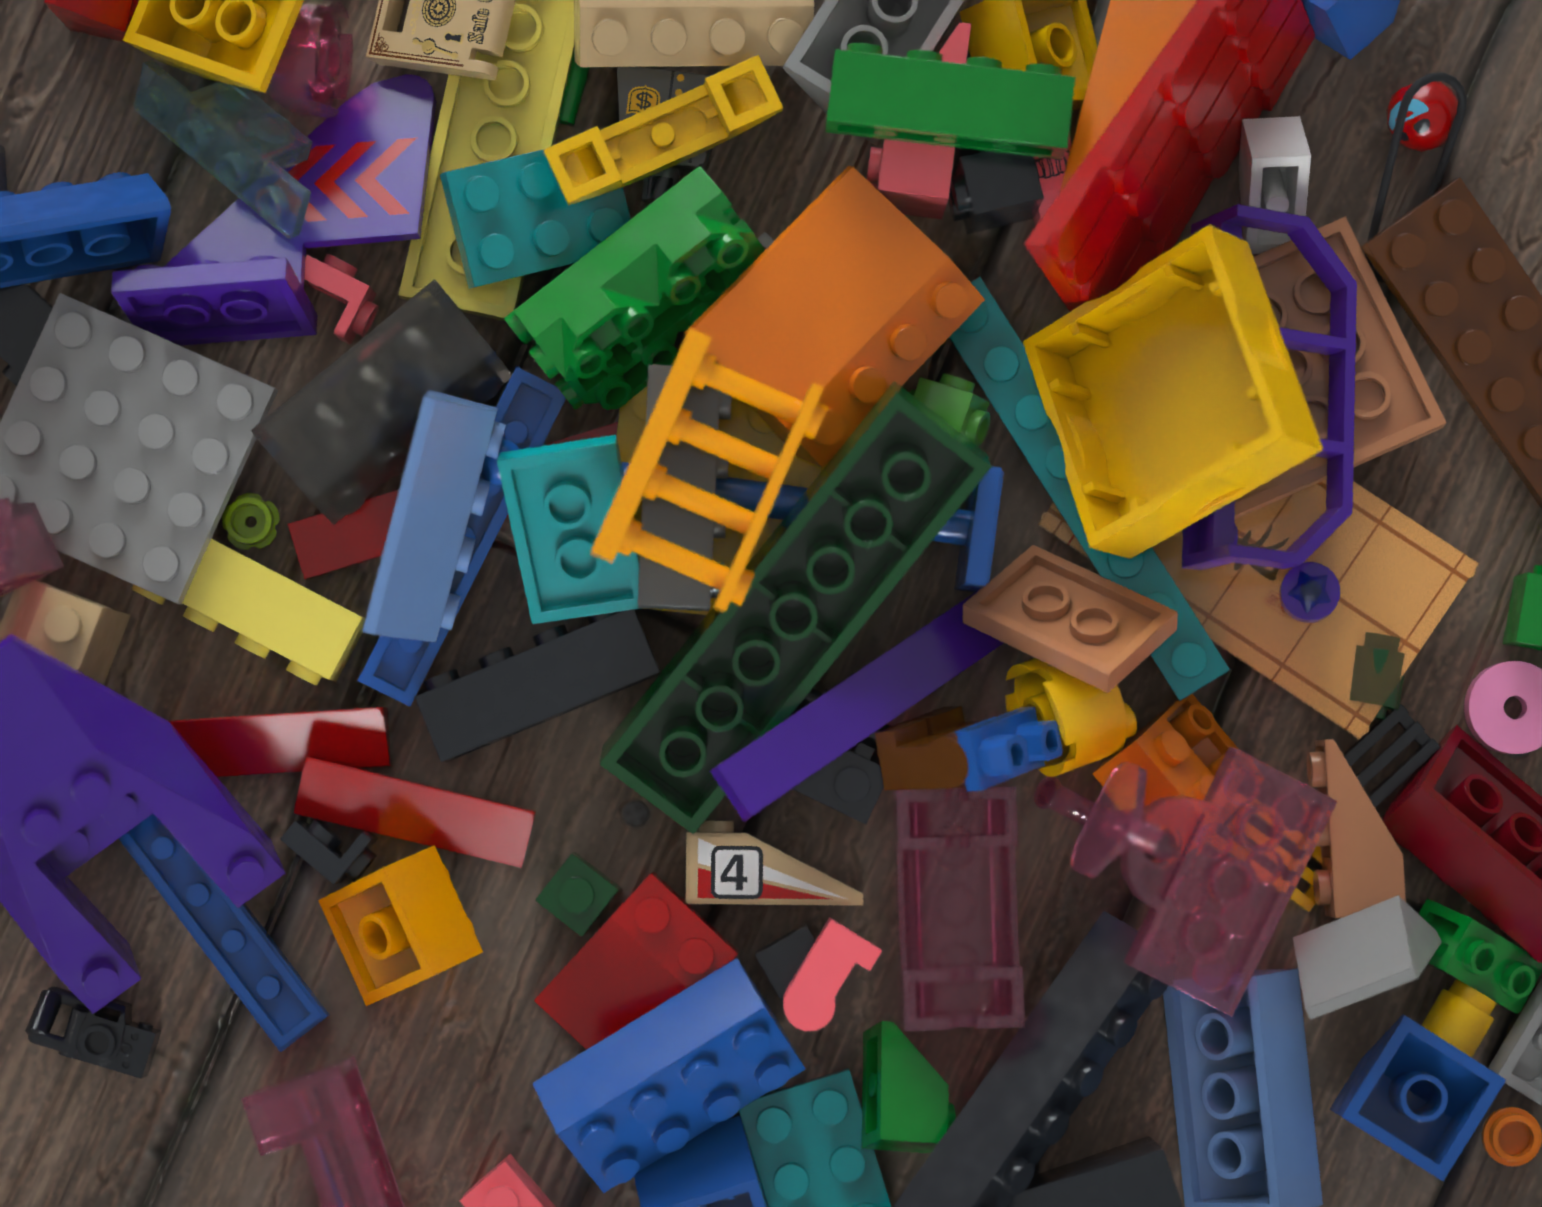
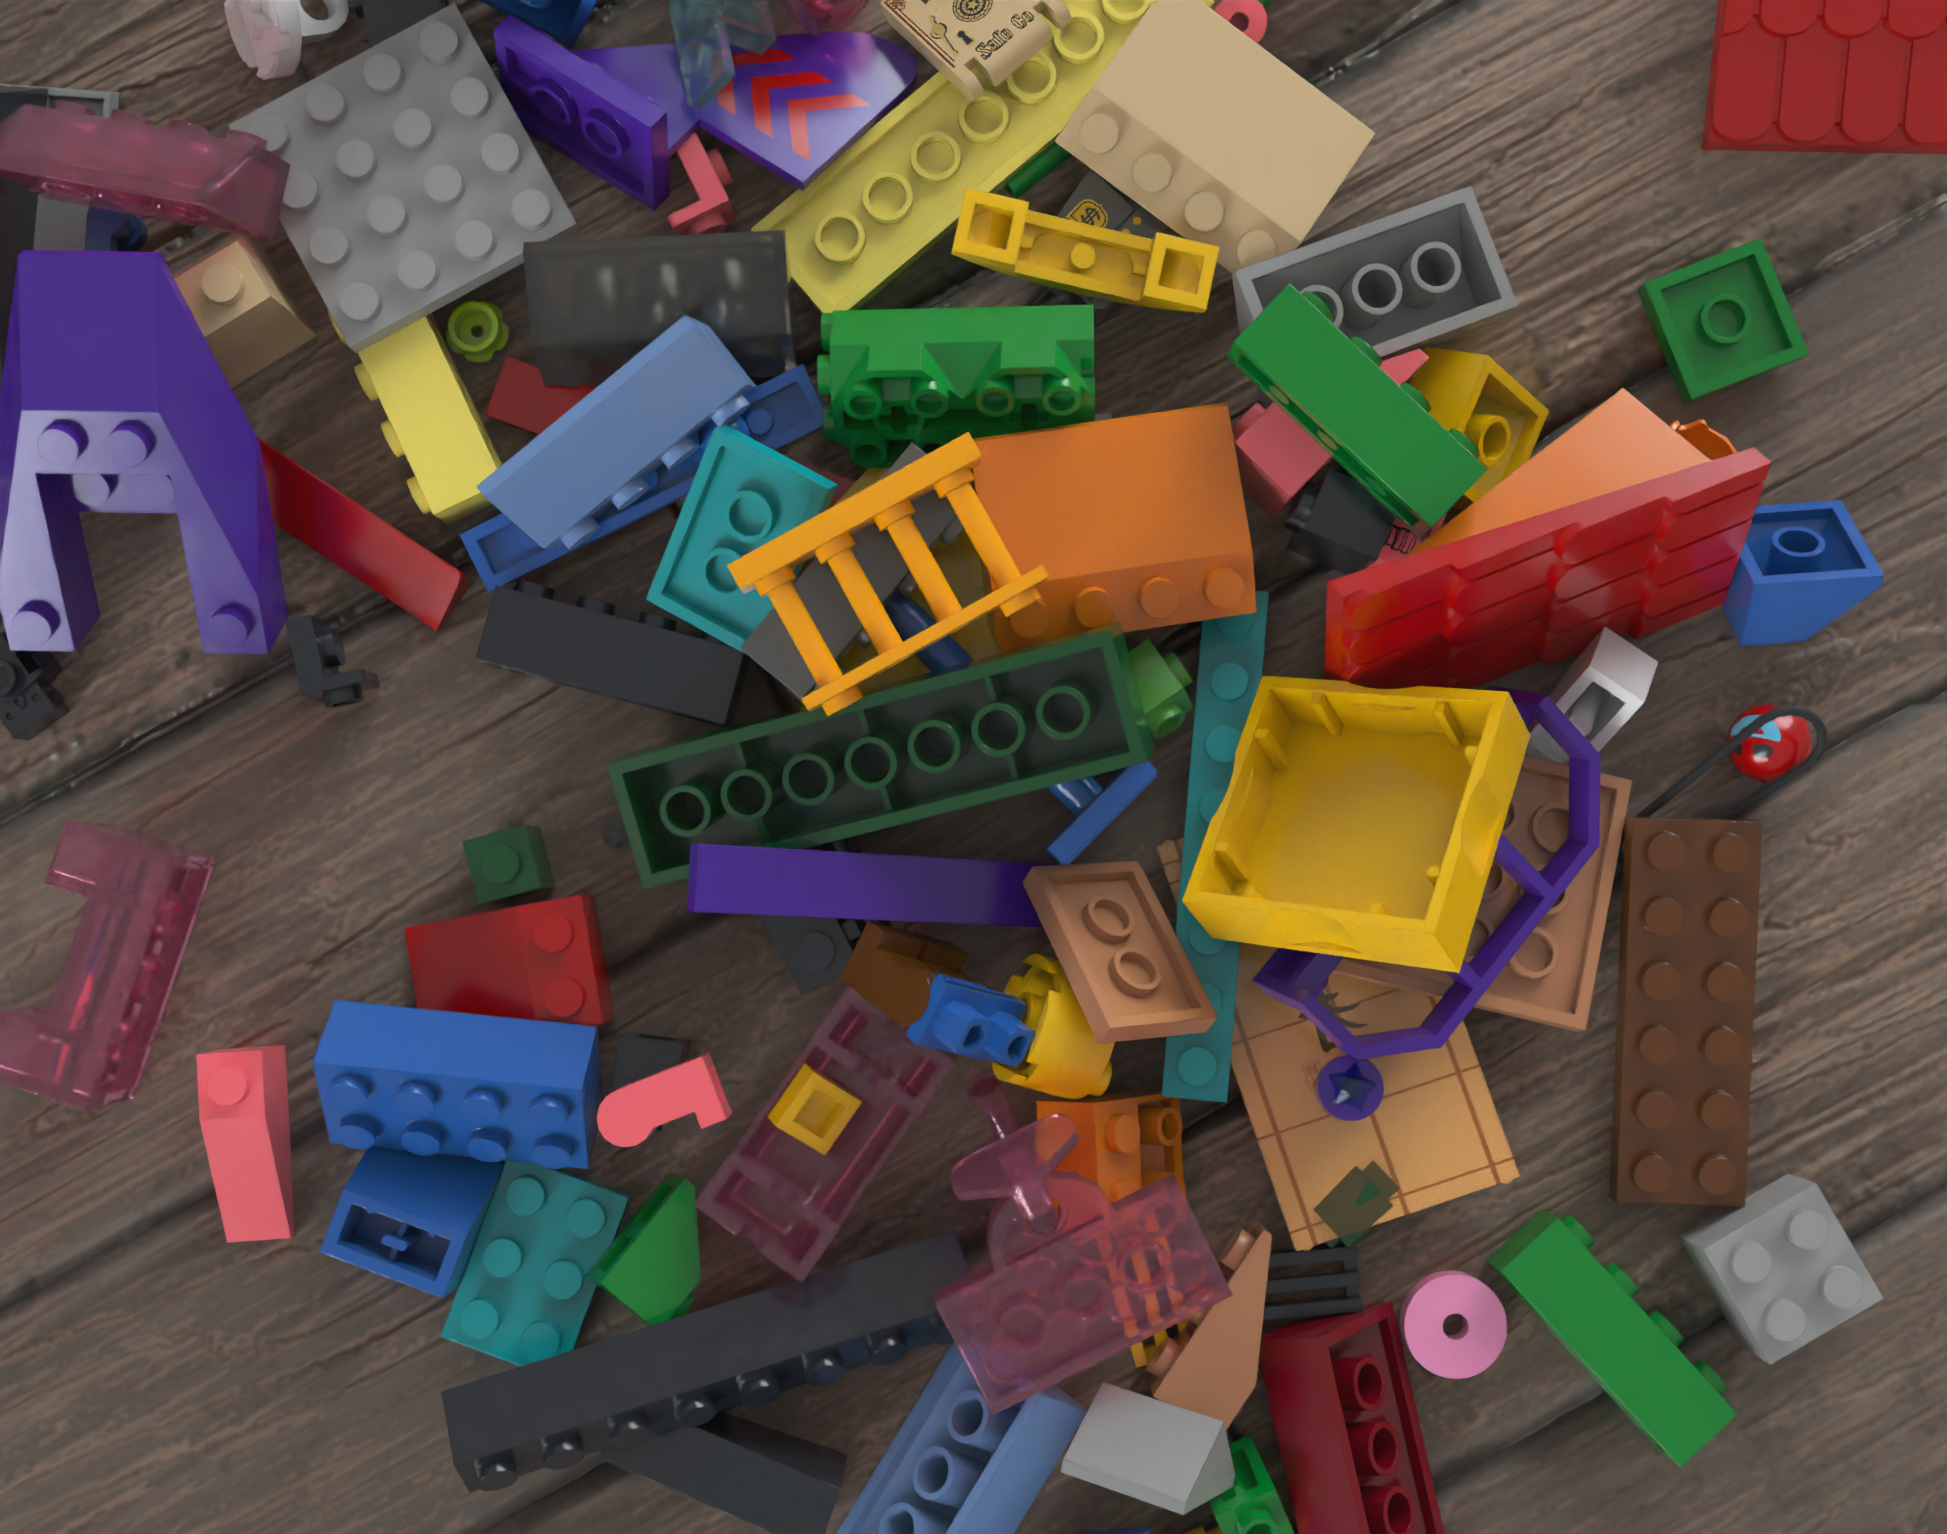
camera: 40 degrees right, 0 degrees up
(227, 936) = (186, 687): blue tile -> none
(400, 925) = (338, 776): light orange slope -> none
(414, 811) = (424, 685): red slope -> none
(517, 222) = (898, 240): teal plate -> none
(746, 870) = (673, 958): slope -> none
(937, 900) = (814, 1109): none -> yellow tile

